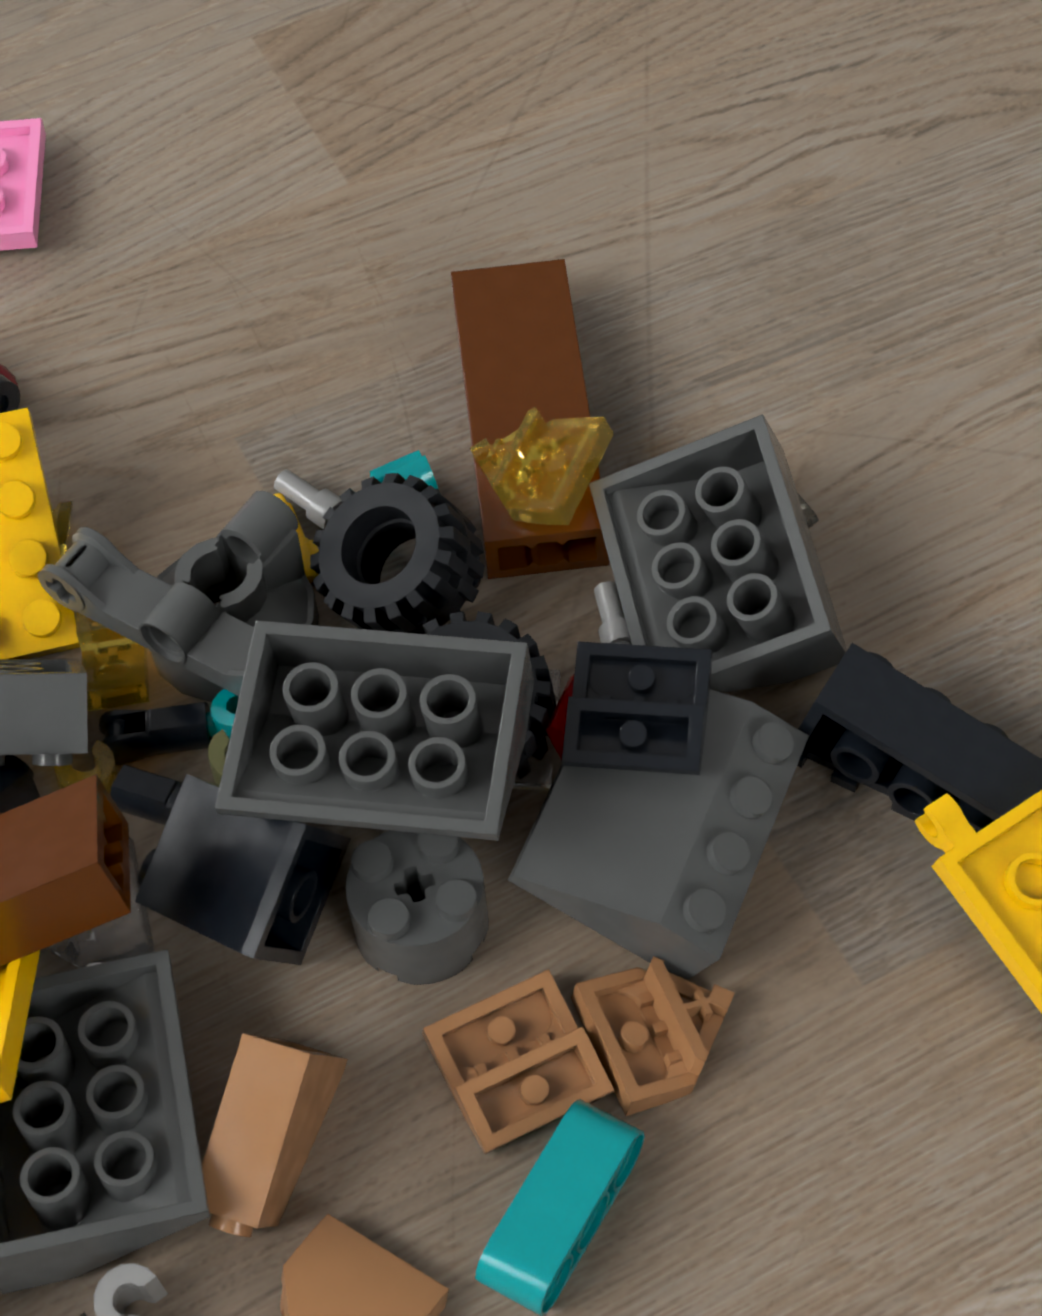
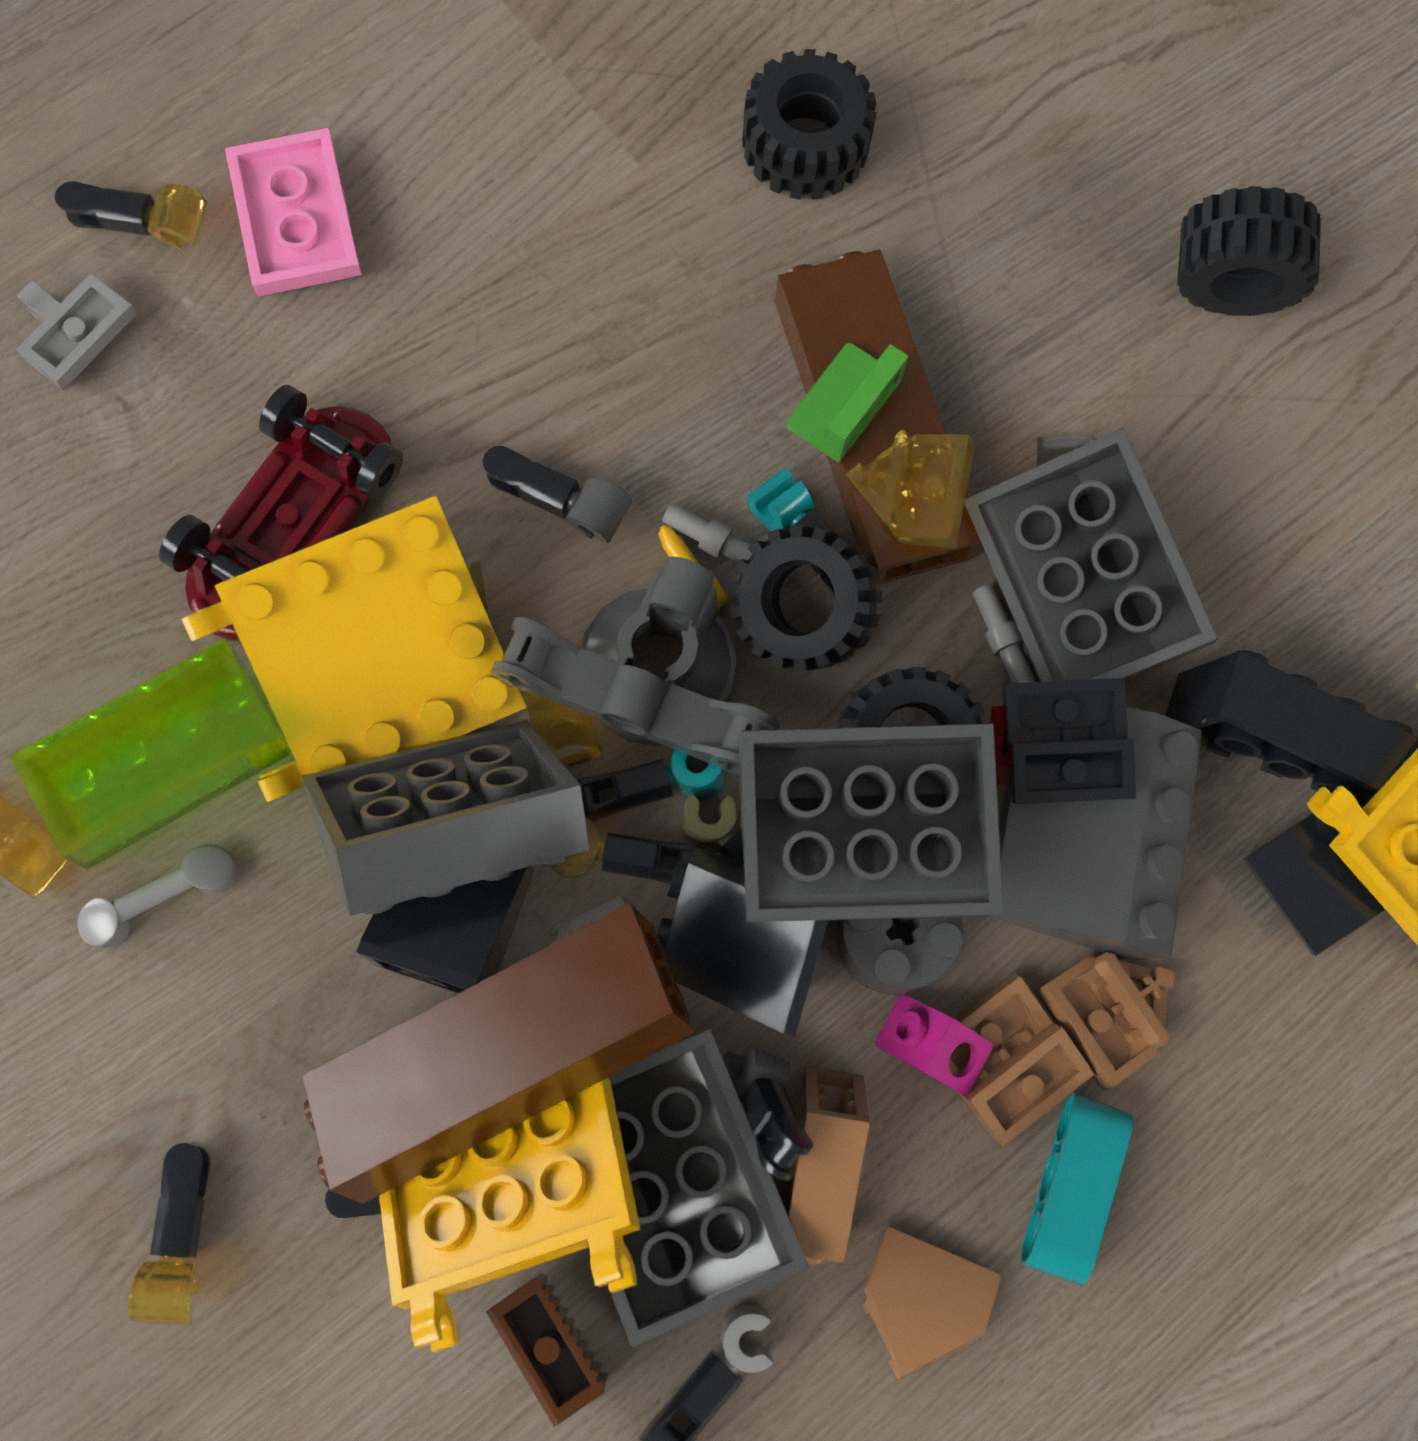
camera: 20 degrees left, 20 degrees up
(199, 467) = (591, 511): none -> piece
(210, 1038) = (762, 1086): none -> black piece
(418, 1011) = (927, 1039): none -> dark pink bracket
(492, 382) = (847, 399): none -> bright green panel
(522, 152) = (816, 90): none -> black tyre
(921, 927) = (1313, 884): none -> black slope
(961, 292) = (1249, 251): none -> black tyre

